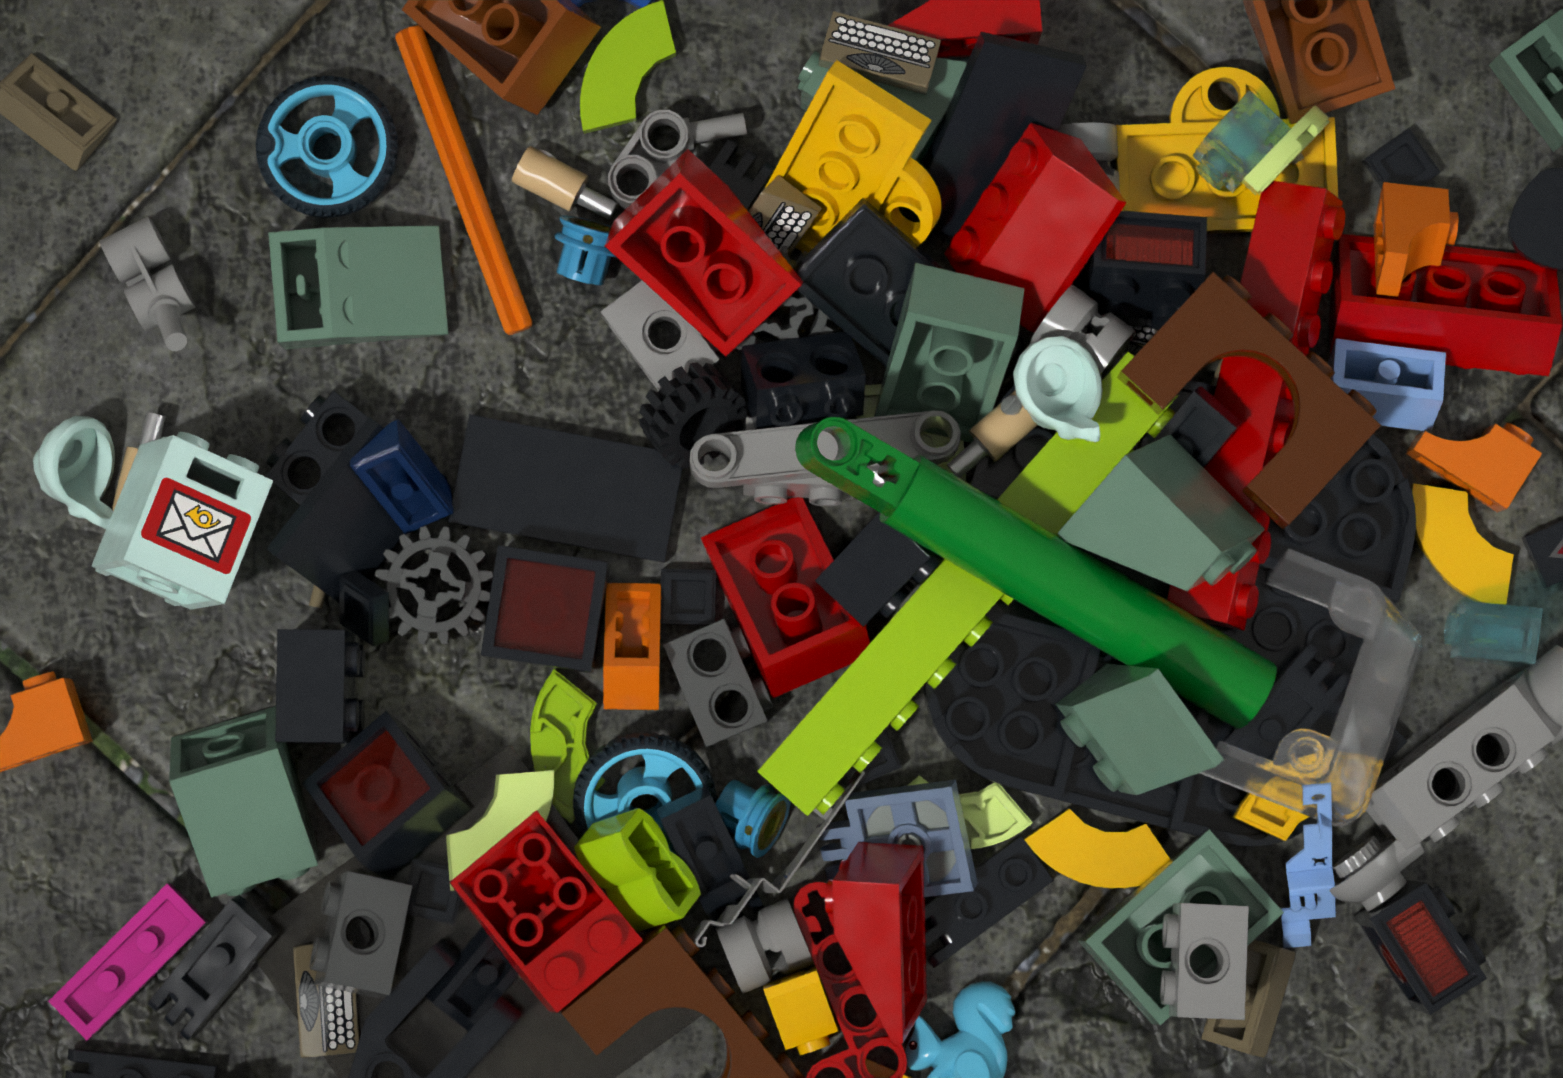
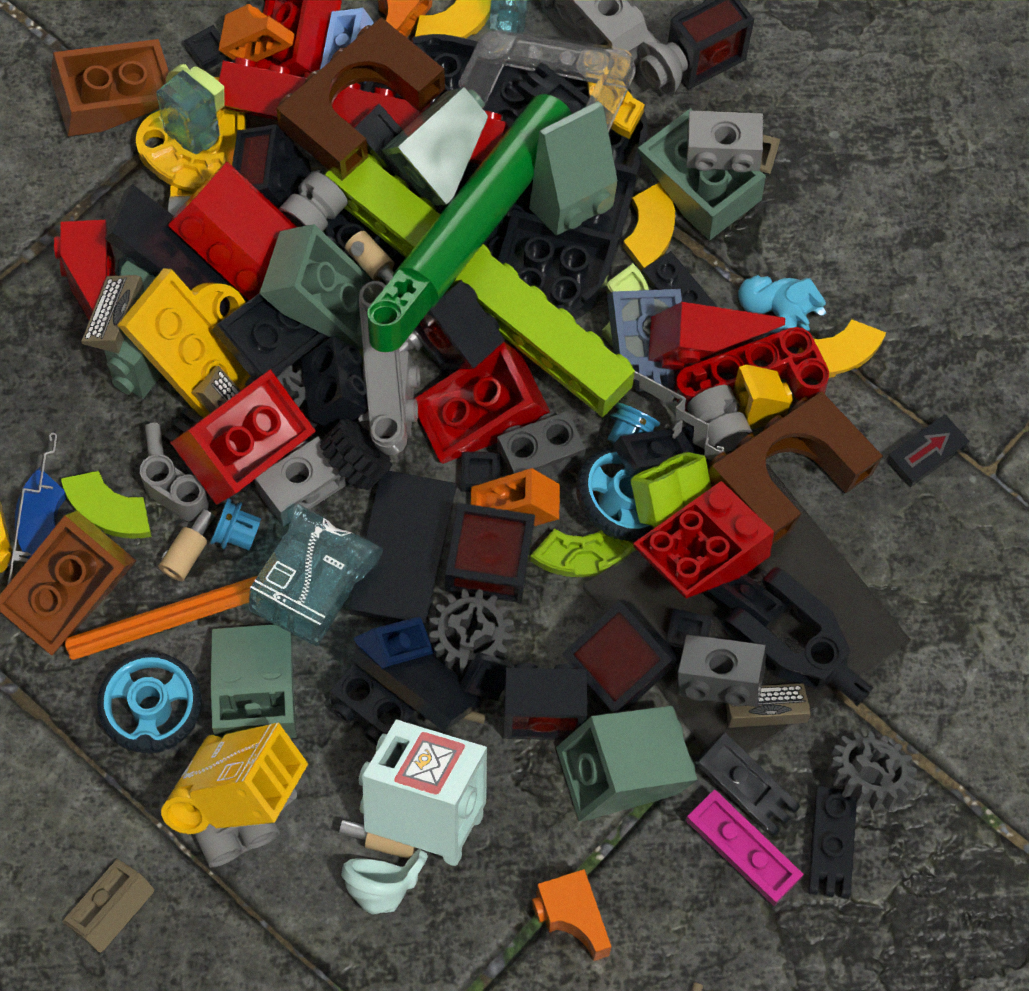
camera: 90 degrees left, 20 degrees down
(190, 268) = (236, 781): none -> yellow piece
(505, 359) = (311, 575): none -> clear light blue piece
(513, 801) = (641, 580): yellowish green tile -> none
(1060, 387) = (350, 207): light aqua hat -> none
(1164, 150) = (182, 167): none -> yellow tile
(1309, 878) = (667, 93): light blue piece -> none

